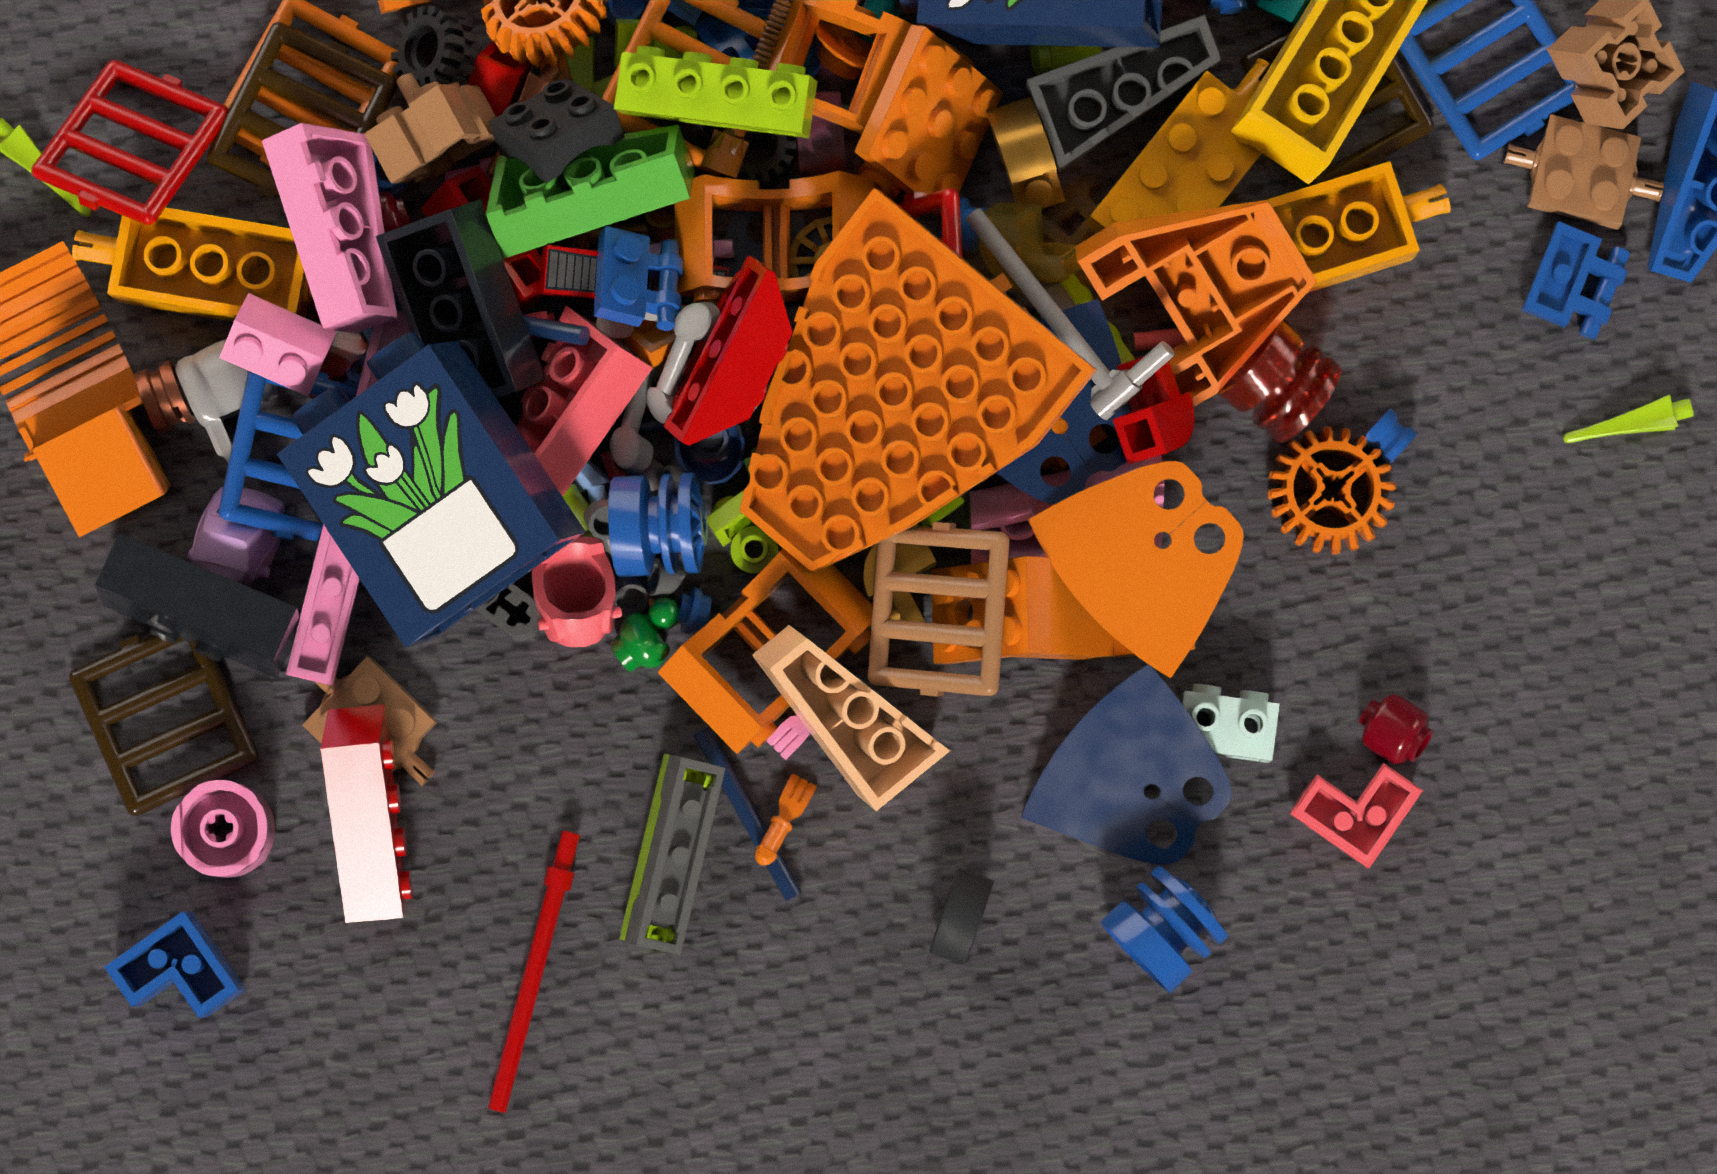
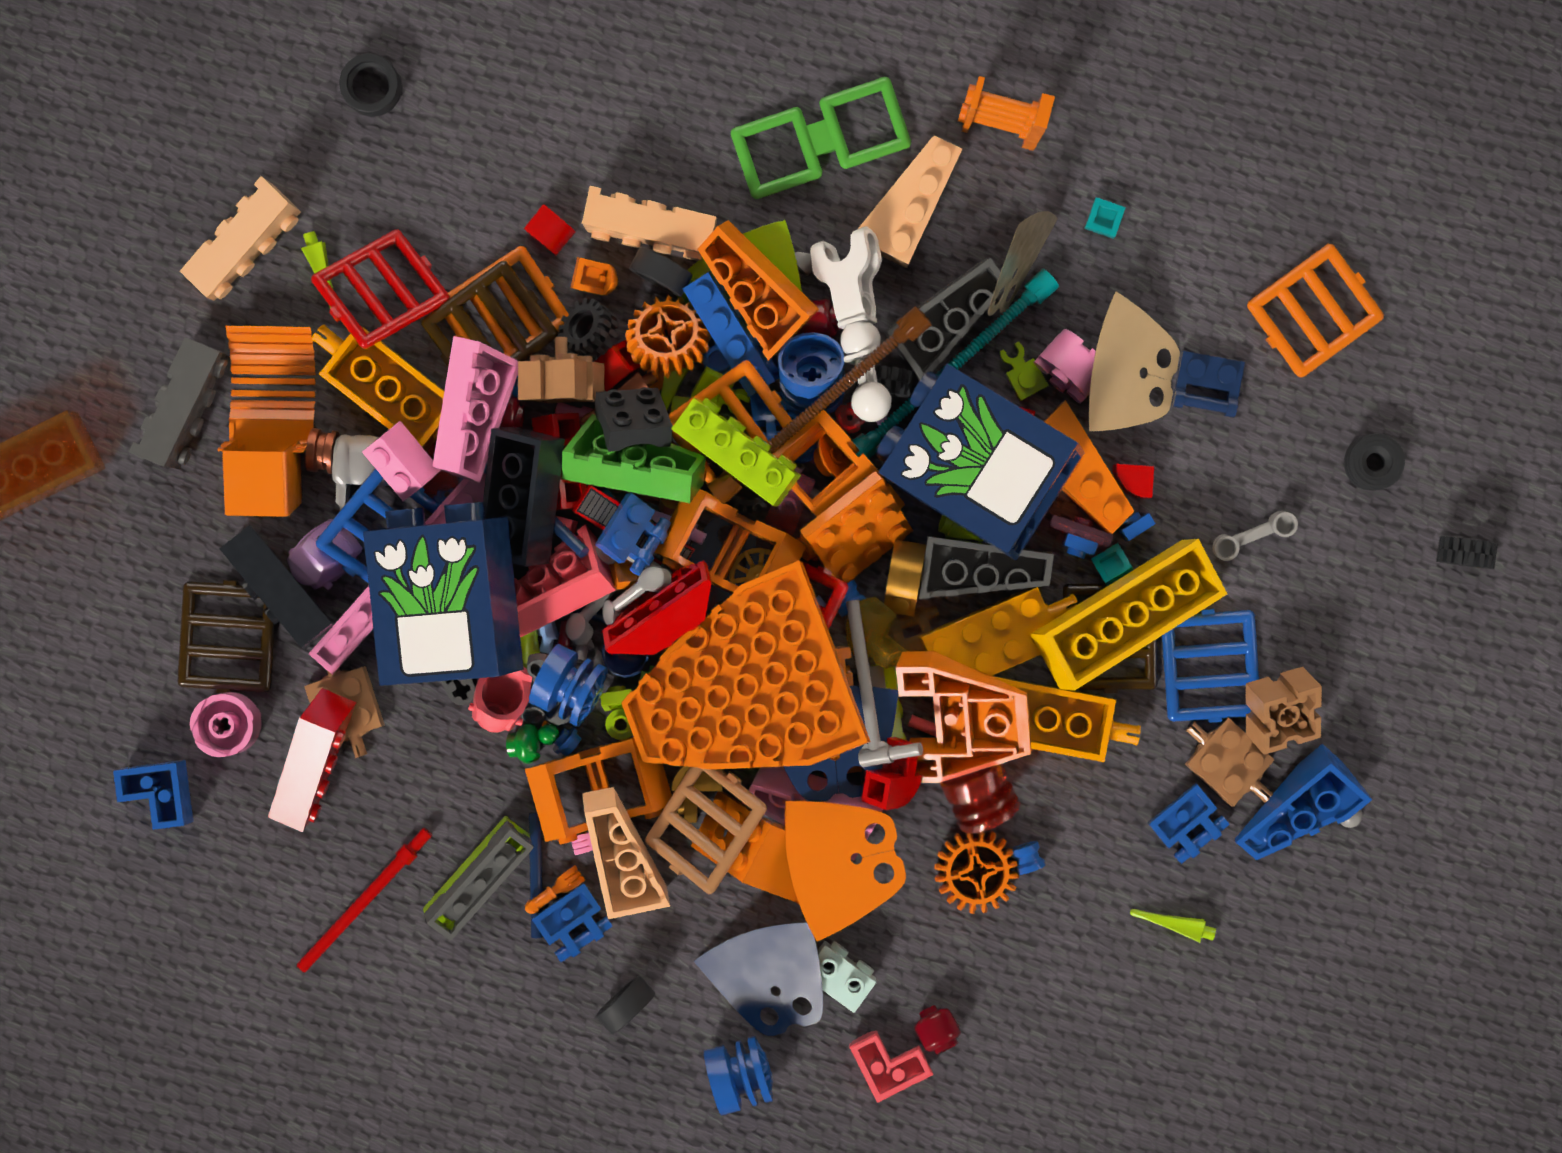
camera: 30 degrees right, 5 degrees up
(816, 842) = (566, 915): none -> blue plate

